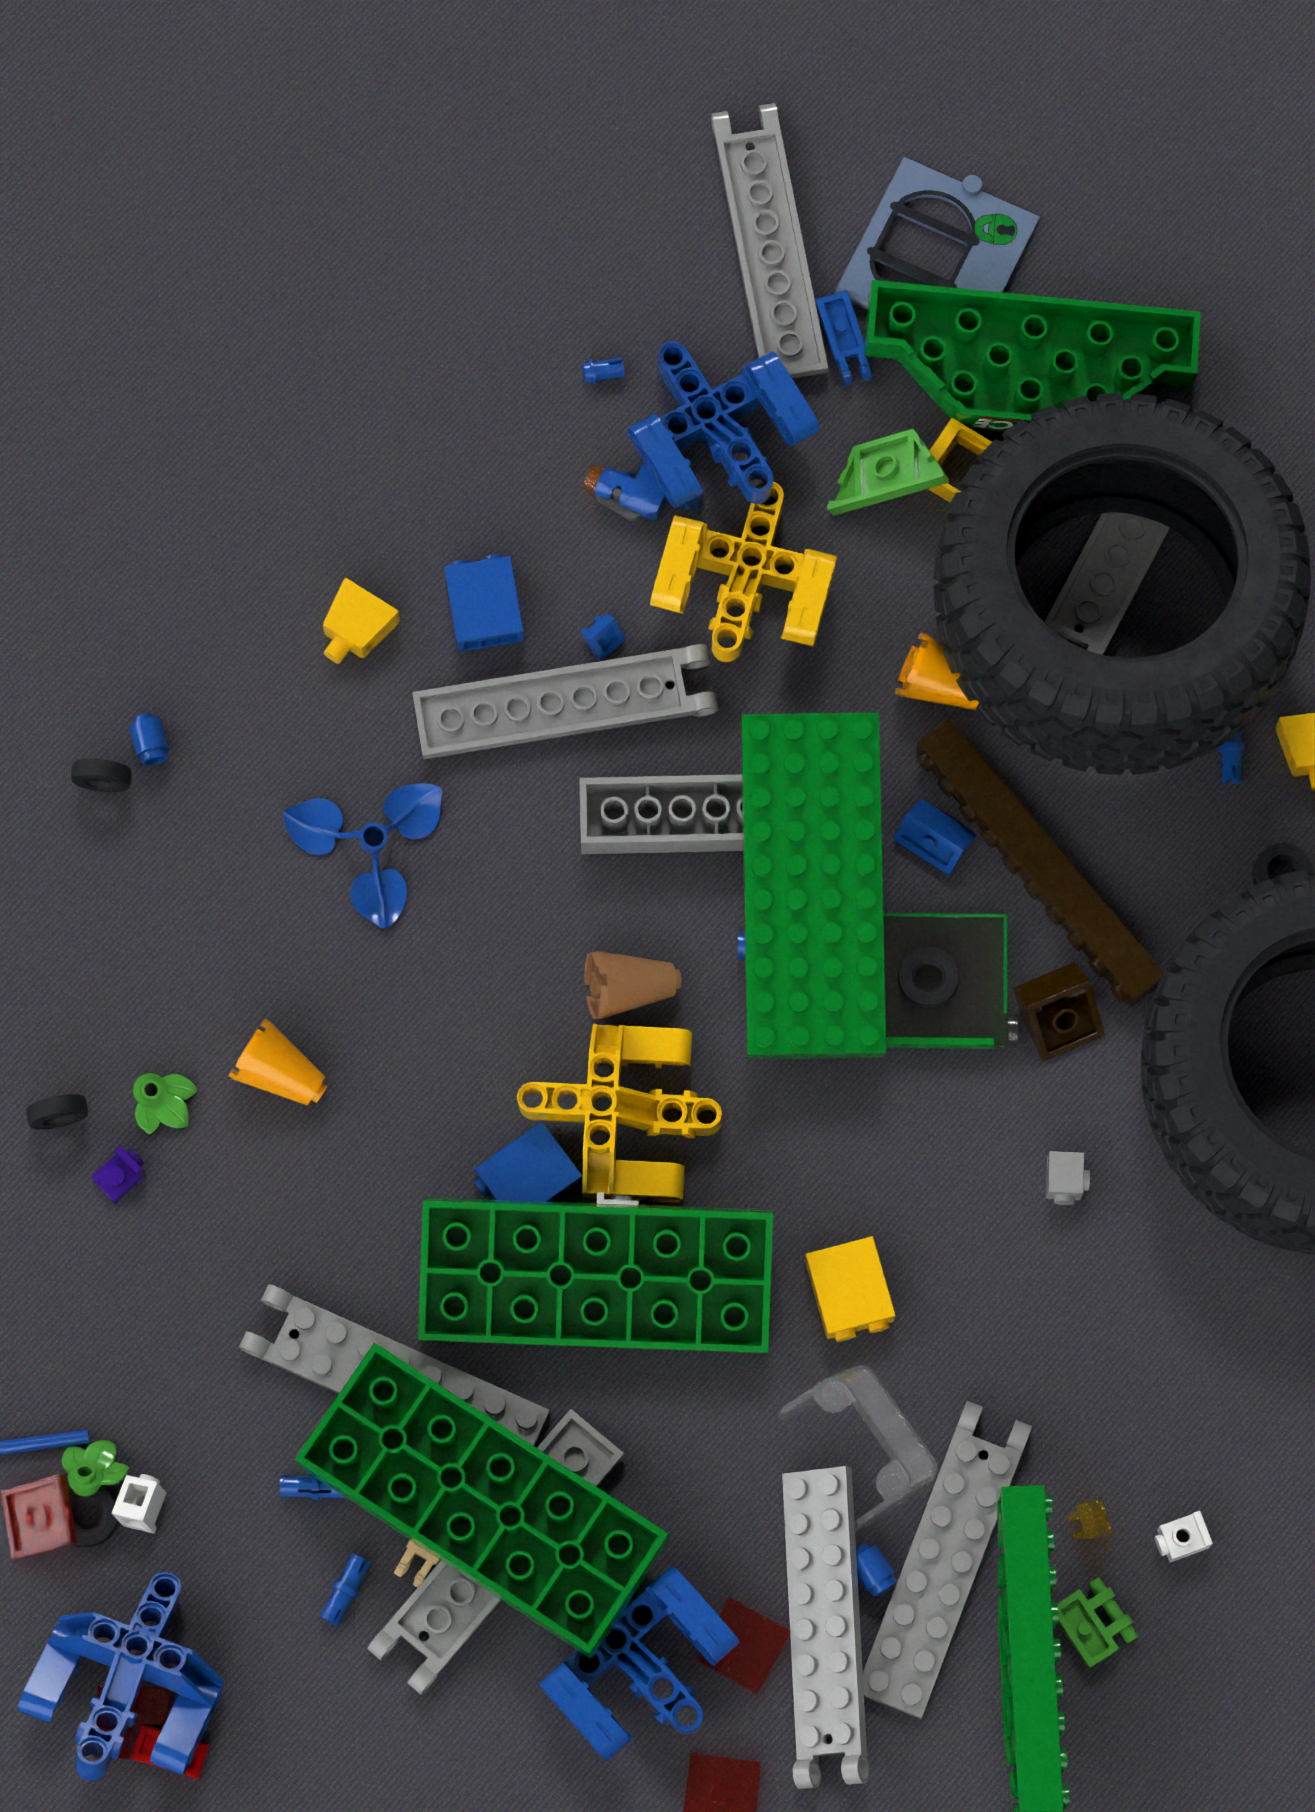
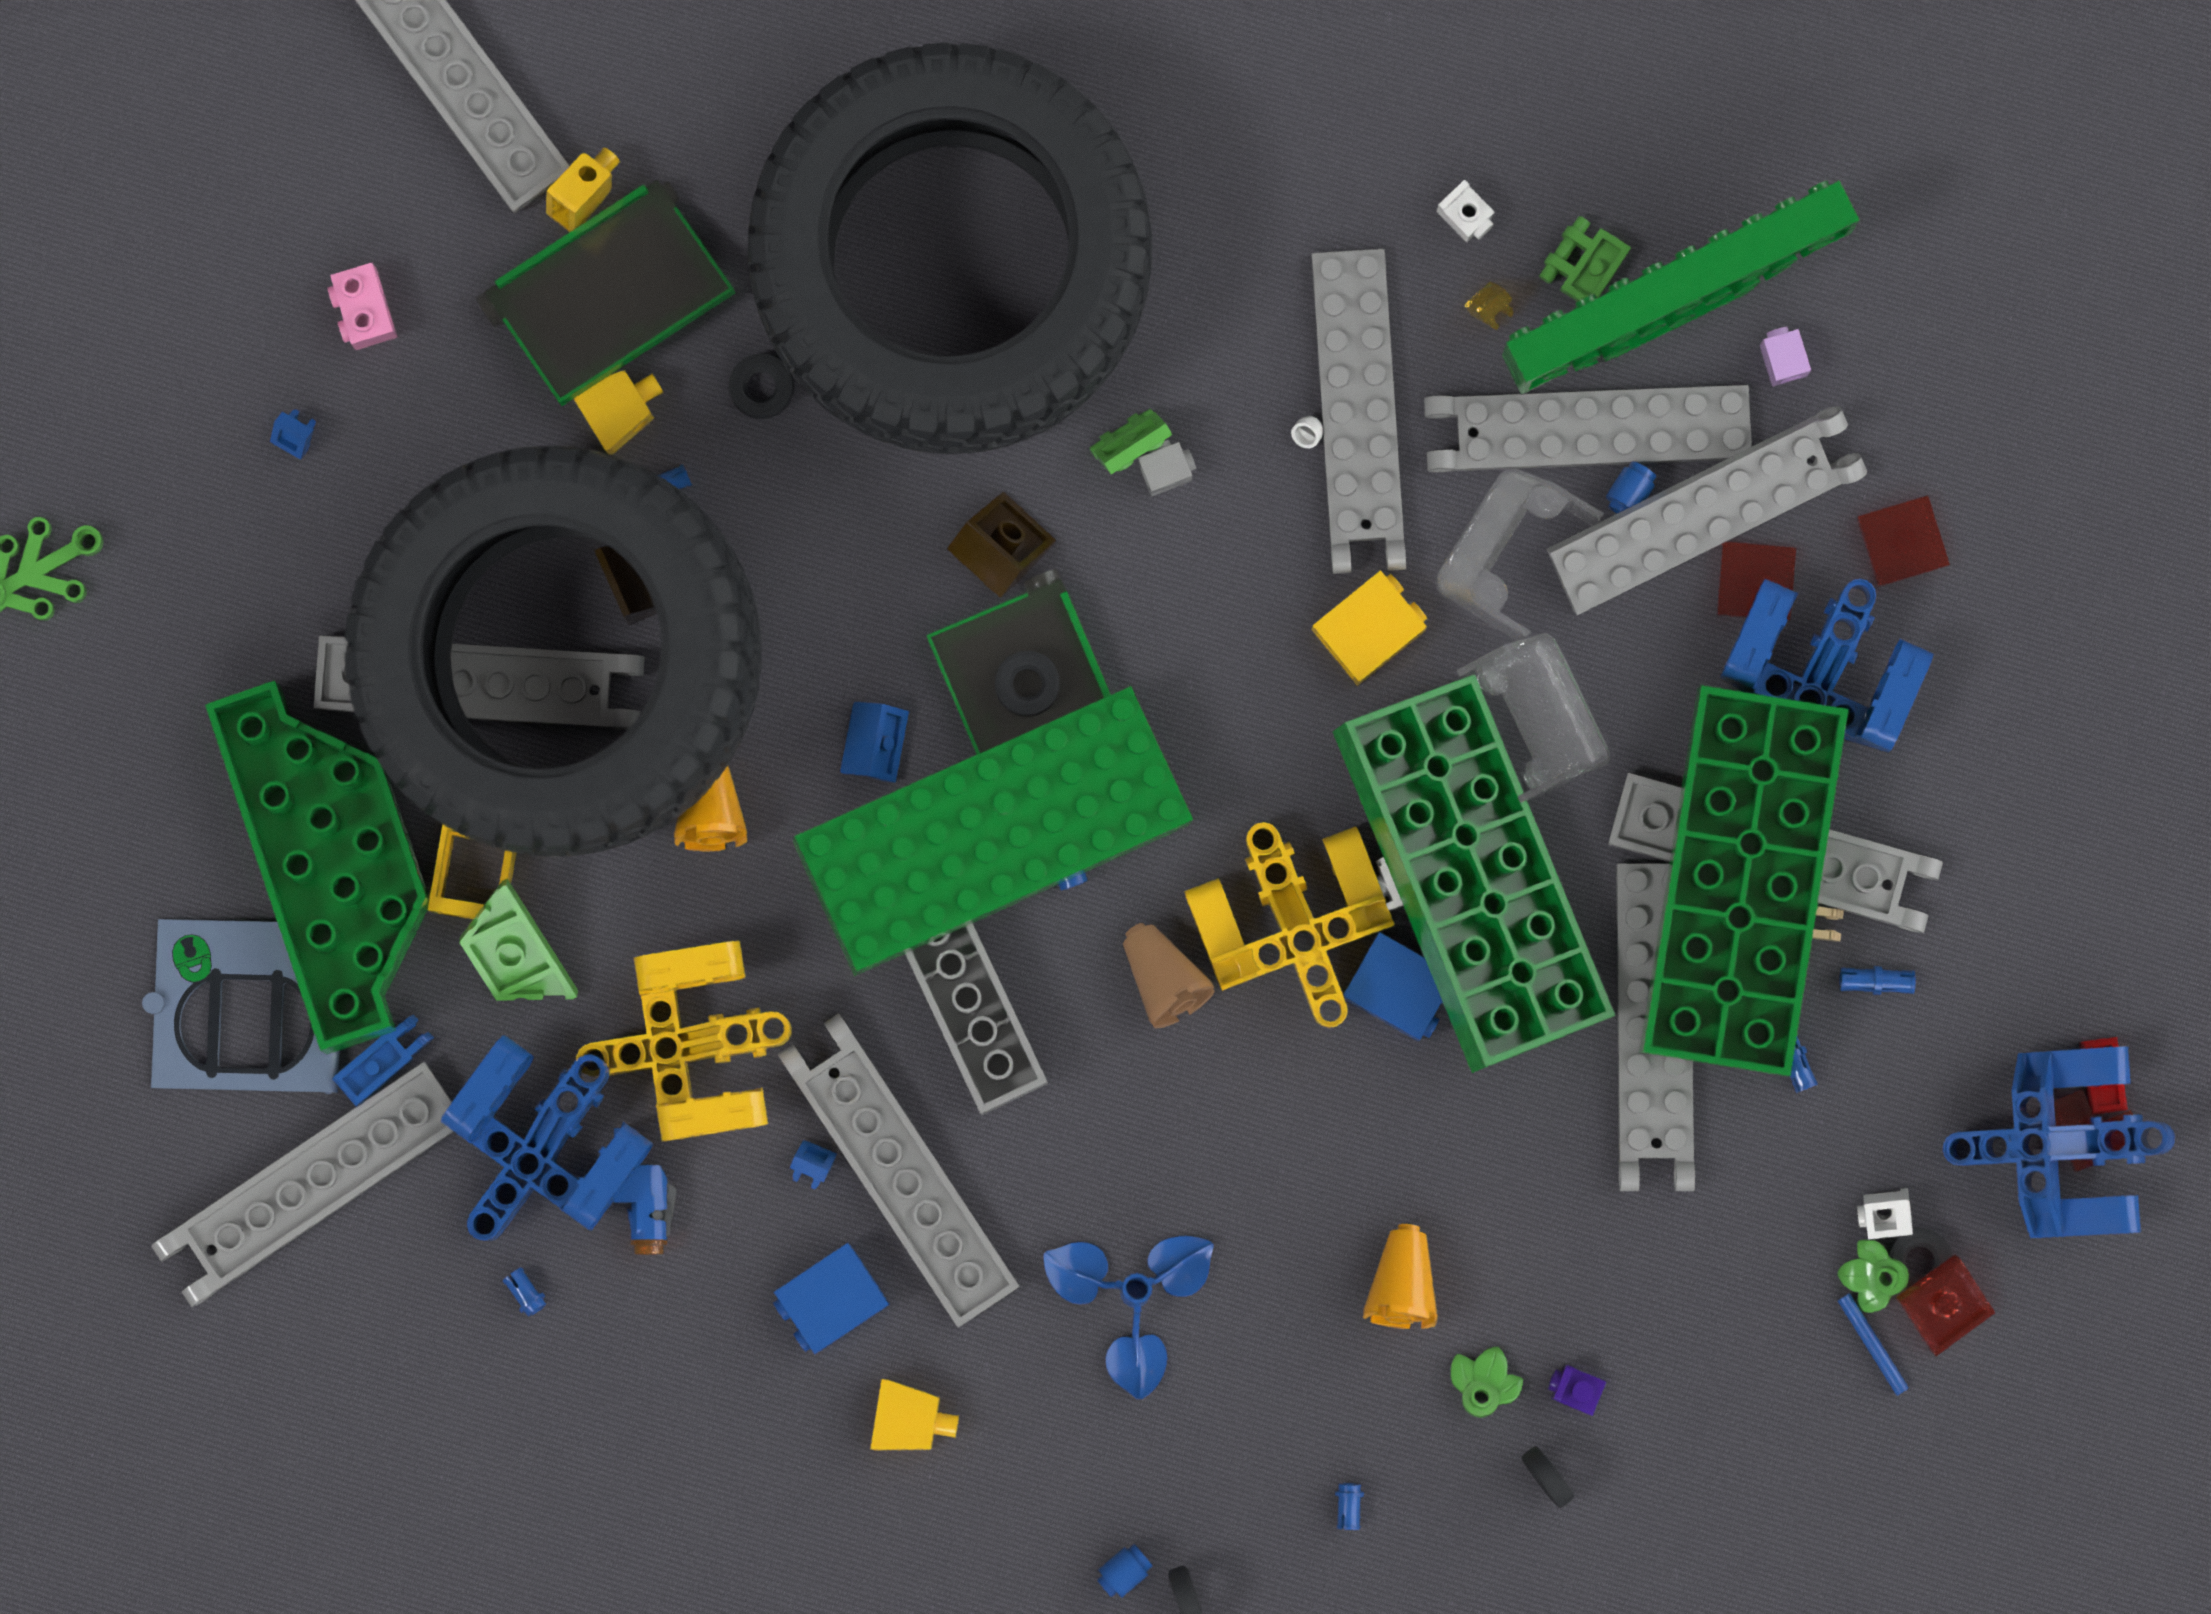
camera: 110 degrees left, 10 degrees up
(113, 943) = (1349, 1506): none -> blue pin
(709, 1409) = (1546, 711): none -> clear windscreen
(933, 1761) = (1784, 356): none -> lavender brick
(1039, 863) = (858, 626): dark brown brick -> none
(1045, 1312) = (1307, 432): none -> white hinge
(1051, 1368) = (1358, 404): none -> light grey hinge
(1101, 1153) = (1120, 448): none -> bright green plate

